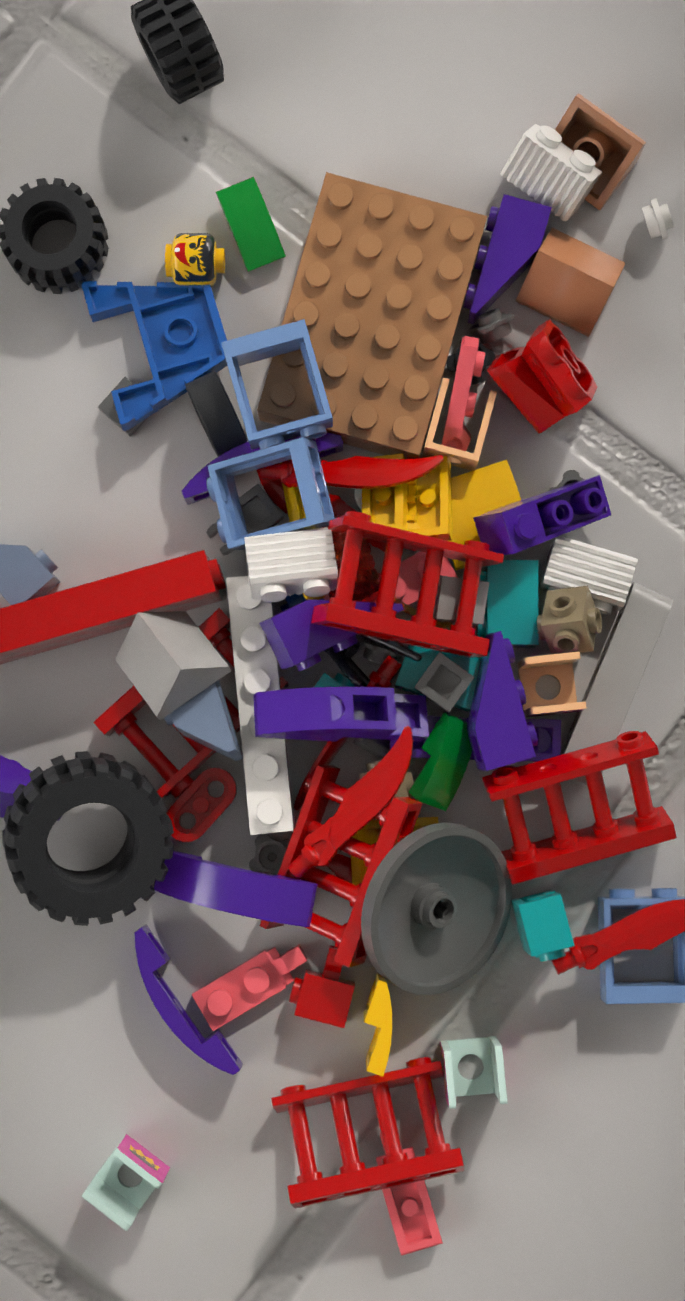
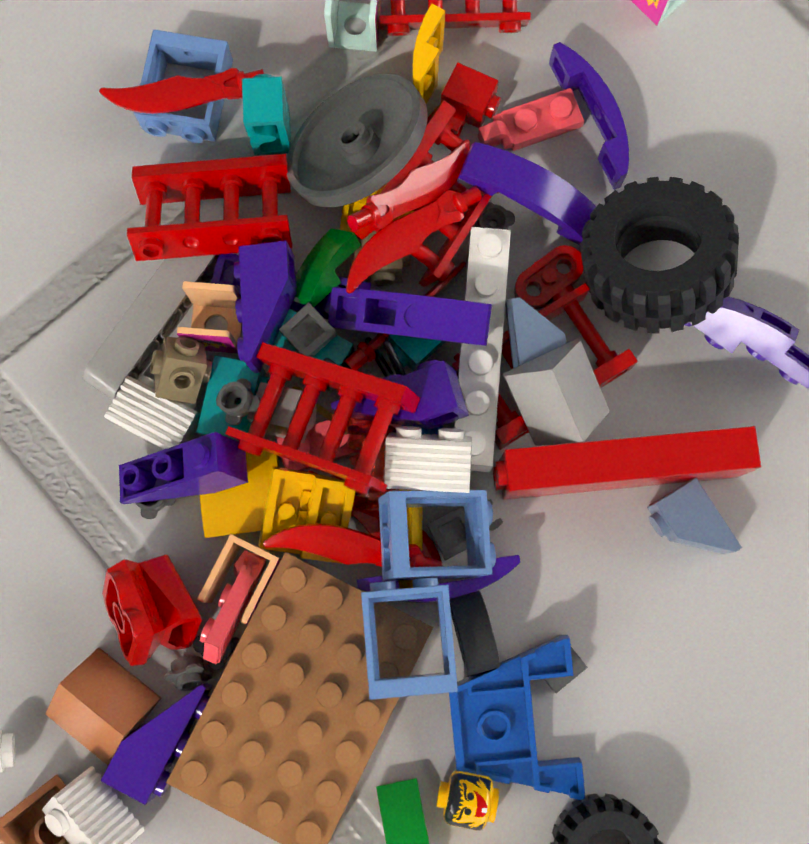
camera: 170 degrees left, 5 degrees down
(359, 852) = (416, 190): none -> sword
(513, 596) = (231, 394): none -> dark grey plate

